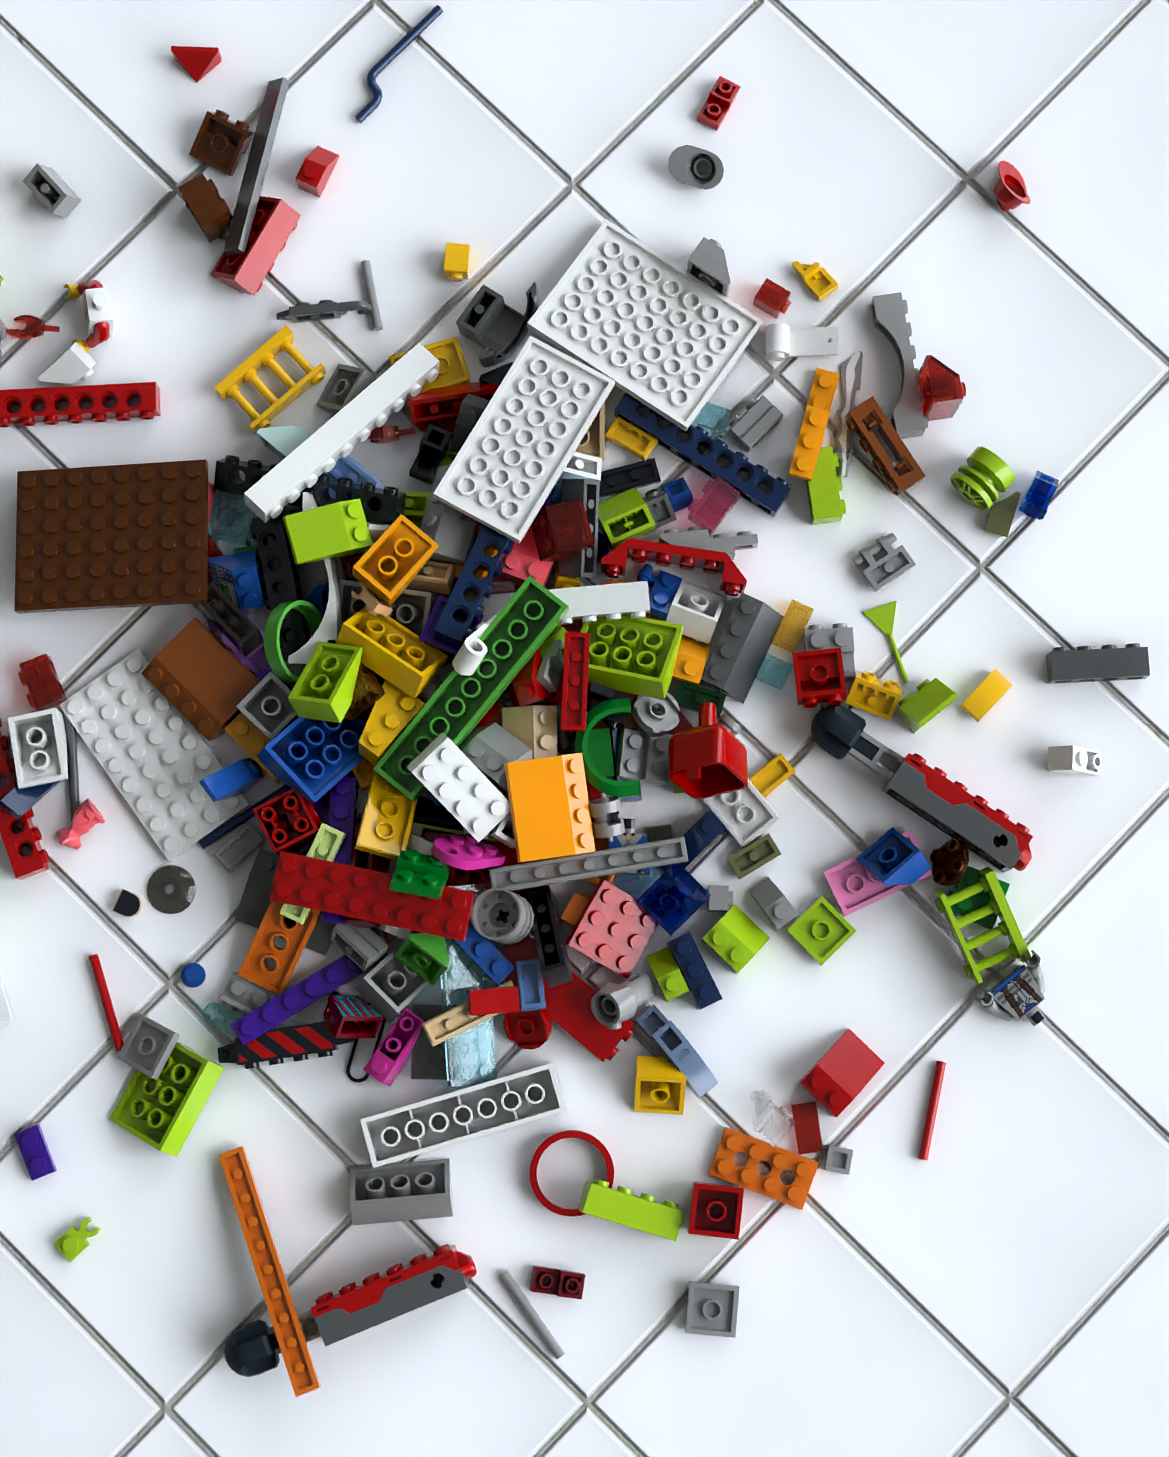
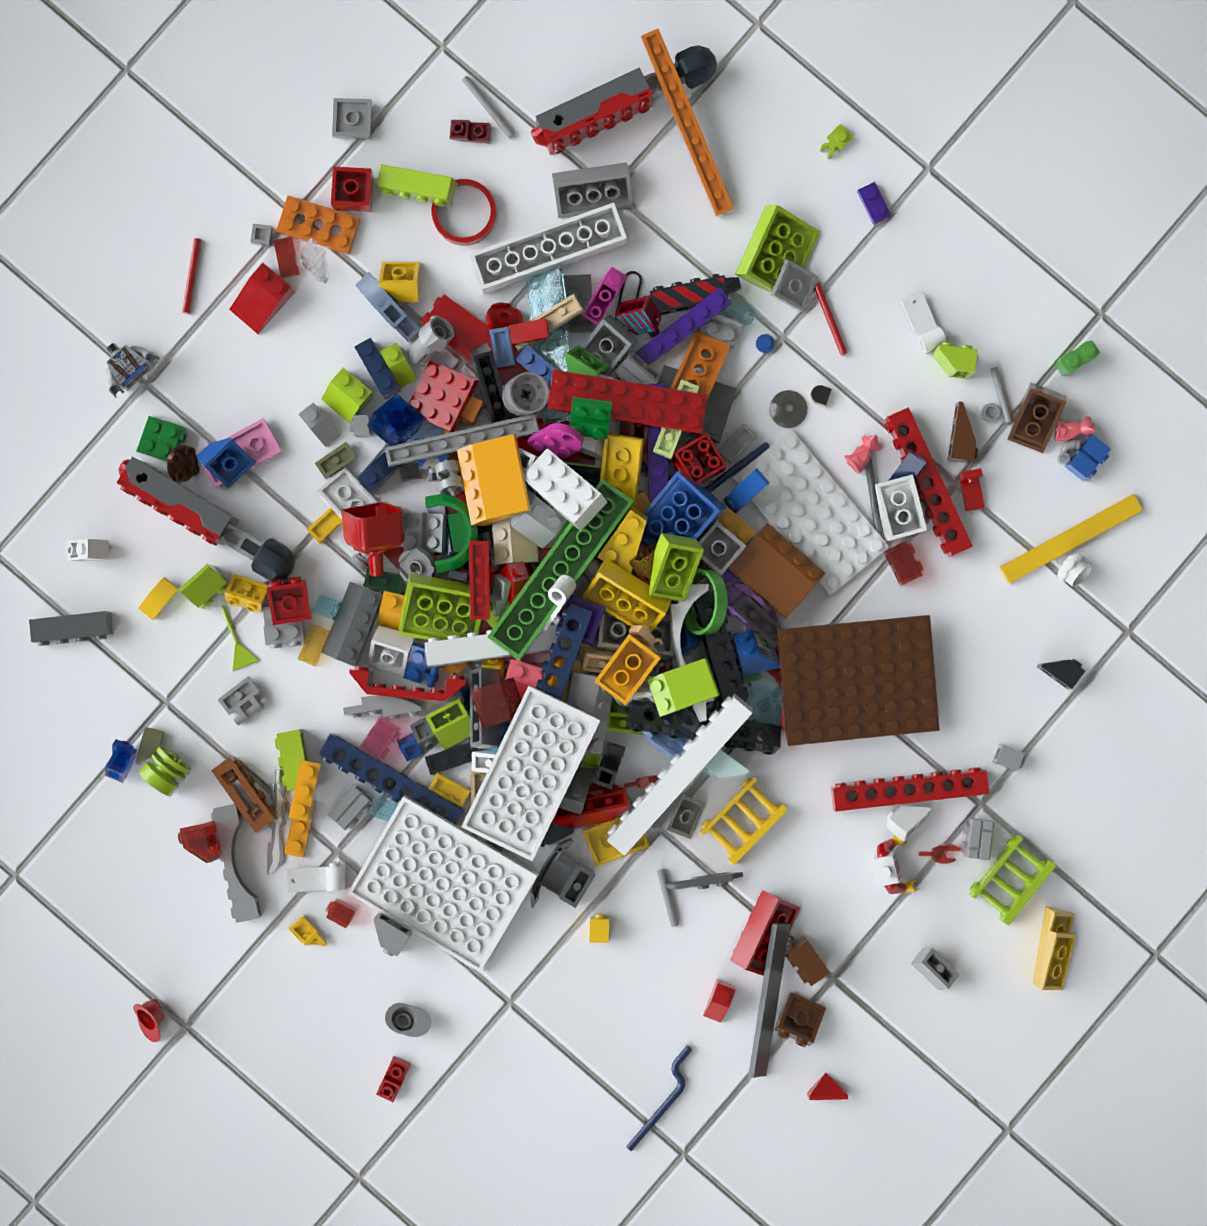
camera: 175 degrees right, 5 degrees up
(821, 930) = (281, 406): lime plate -> none
(997, 905) = (143, 430): lime fence -> none

